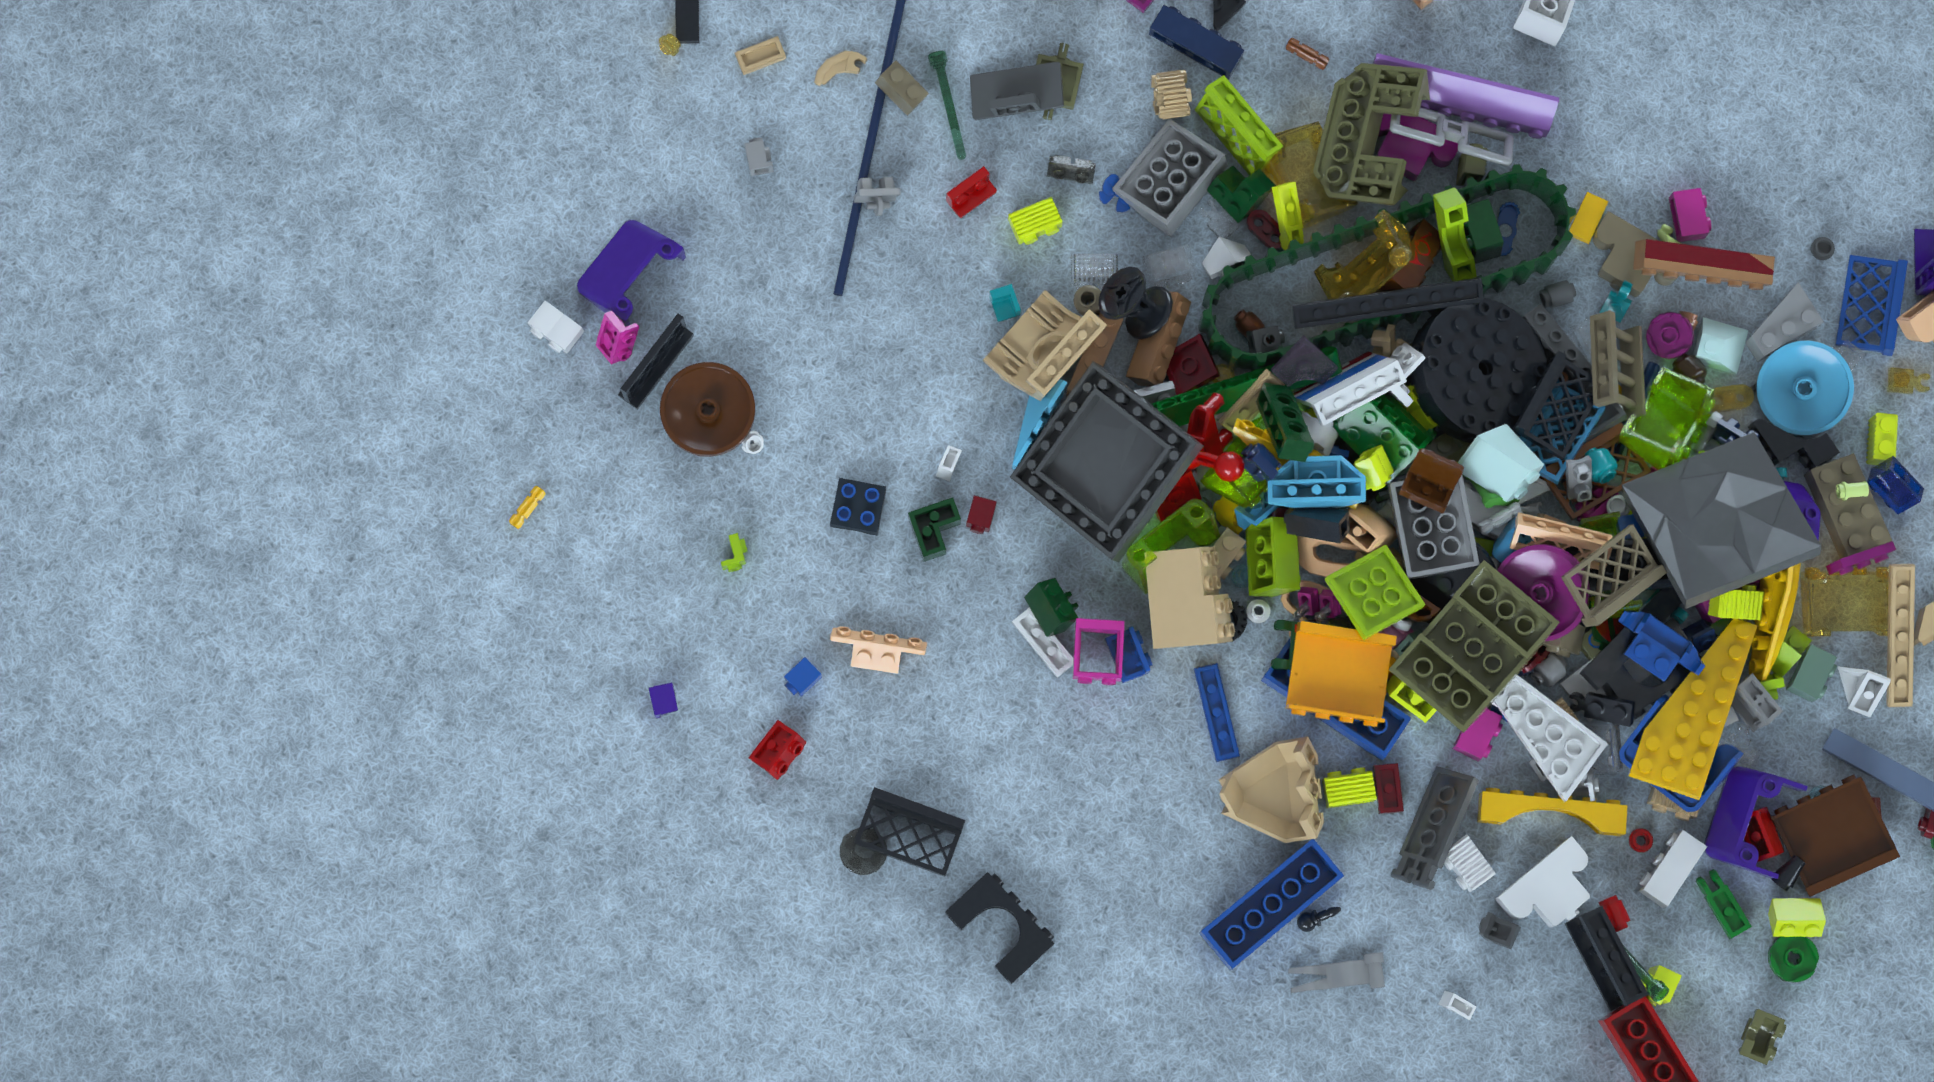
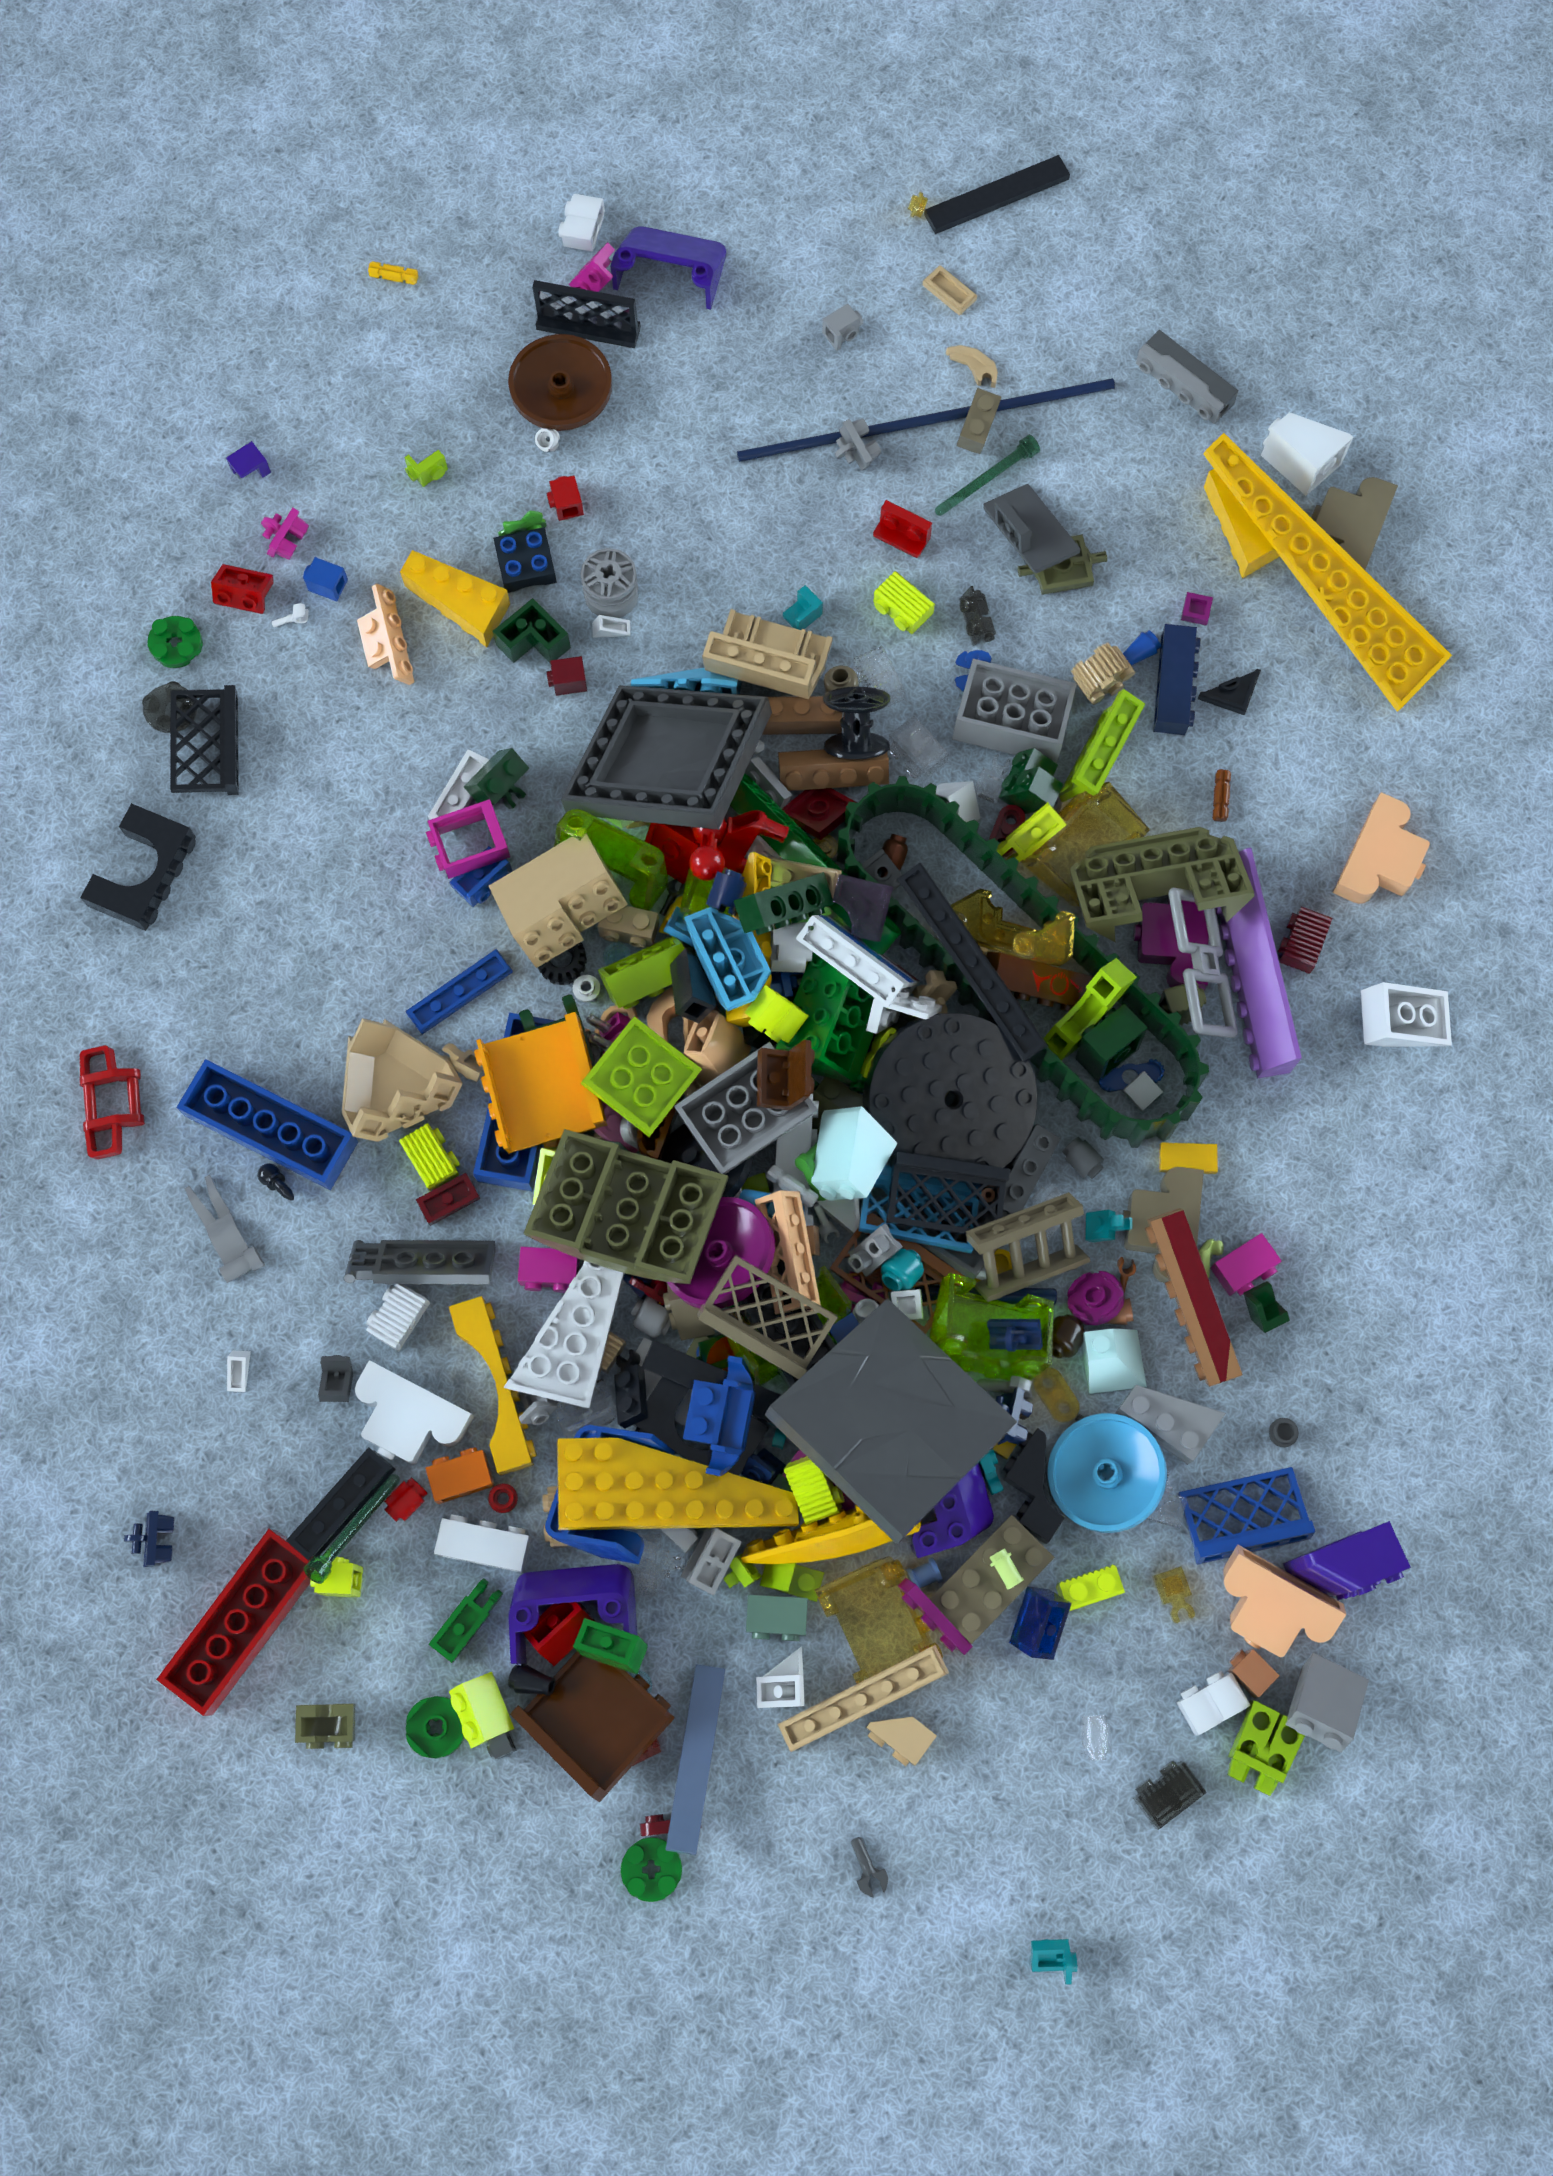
camera: 70 degrees right, 5 degrees down
(740, 697) = (292, 525): none -> dark pink hips
(807, 837) = (174, 626): none -> green plate
(815, 450) = (565, 497): none -> red brick
(822, 711) = (299, 615): none -> white hand
(829, 489) = (530, 521): none -> bright green plate
(871, 572) = (458, 595): none -> yellow wedge
(916, 459) = (609, 583): none -> light grey wheel
(1157, 55) = (1142, 647): none -> blue cone
(1170, 1037) = (114, 1122): none -> red bar
(1282, 728) = (464, 1062): none -> tan plate
(1454, 48) = (1305, 939): none -> dark red brick
(1522, 226) = (1142, 1091): none -> white tile
(1612, 865) = (459, 1475): none -> orange brick
(1627, 472) = (909, 1303): none -> white plate
(1657, 304) = (1125, 1273): none -> dark orange hand
(1679, 405) = (1015, 1334): none -> dark blue hips
(1728, 217) = (1264, 1308): none -> dark green panel
(1796, 798) = (610, 1646): none -> green panel
(1826, 555) = (925, 1574): none -> medium blue bush
(1831, 913) = (501, 1746): none -> dark grey piece

